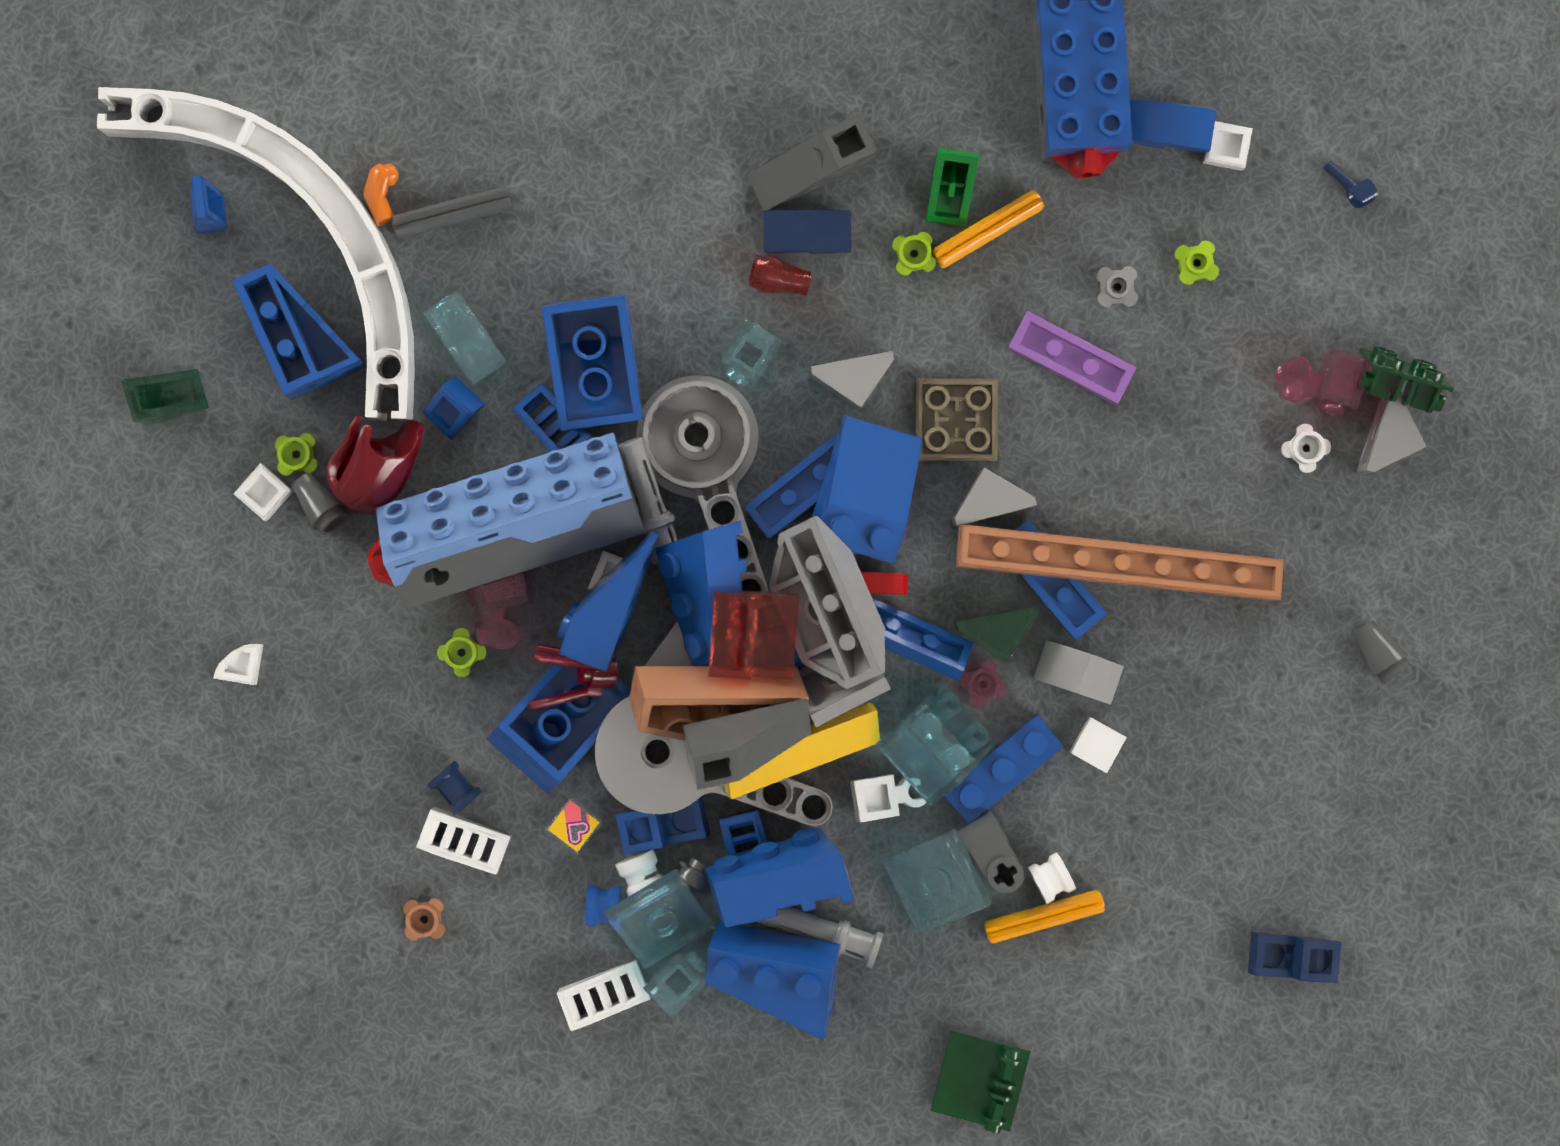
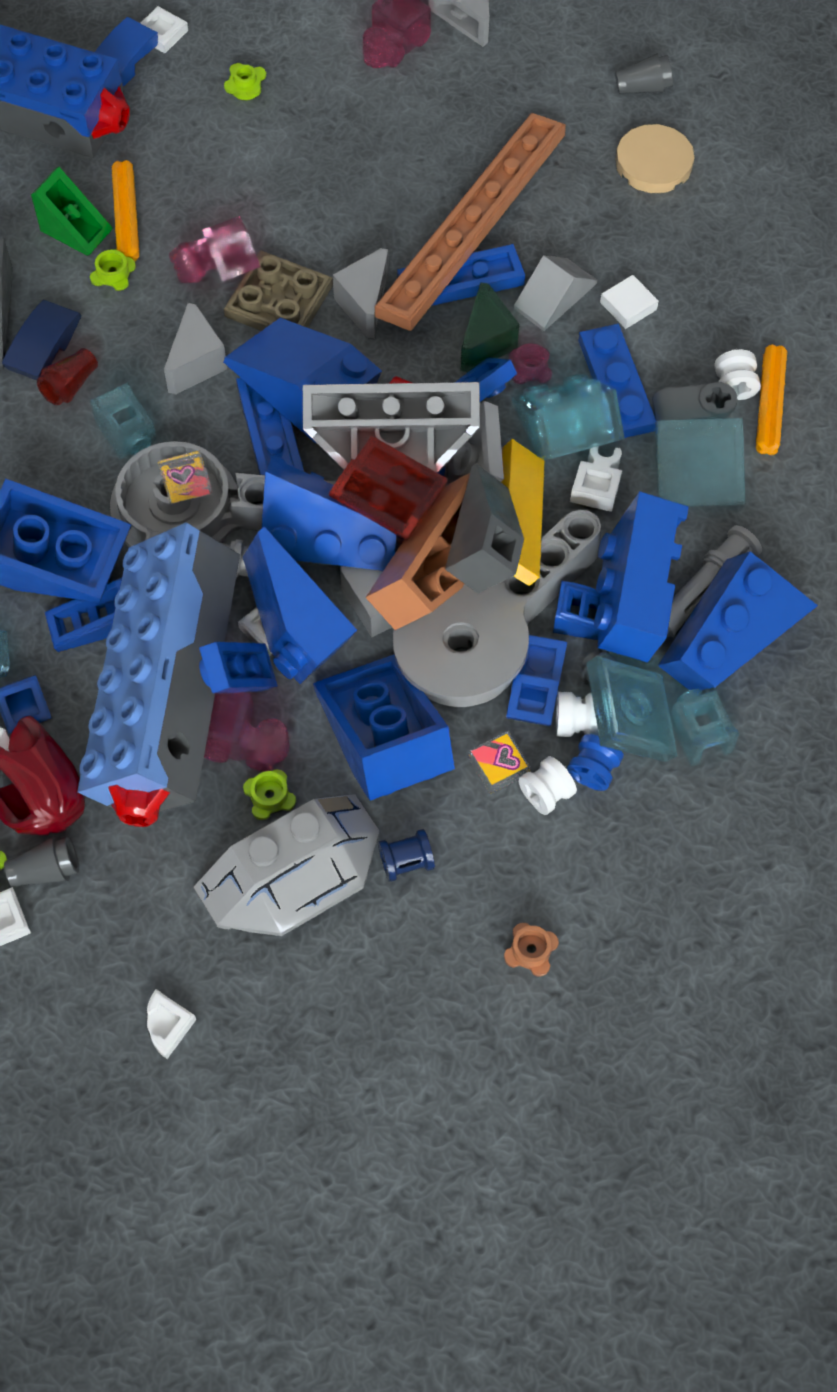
camera: 65 degrees left, 25 degrees down
(404, 706) = (292, 868): none -> light grey wedge
(443, 850) = (440, 899): white slope -> none
(533, 586) = (236, 667): none -> blue plate
(565, 875) = (547, 785): none -> white wheel
(566, 993) = (683, 838): white slope -> none
(593, 678) = (352, 666): dark red plant -> none
(706, 443) = (185, 477): none -> clear tile
(976, 346) = (222, 248): none -> clear pink brick
(1071, 358) = (275, 189): medium lavender plate -> none
(1108, 295) = (231, 140): light grey plate -> none
(1283, 701) = (654, 158): none -> tan tile
(1294, 448) = (444, 65): white plate -> none

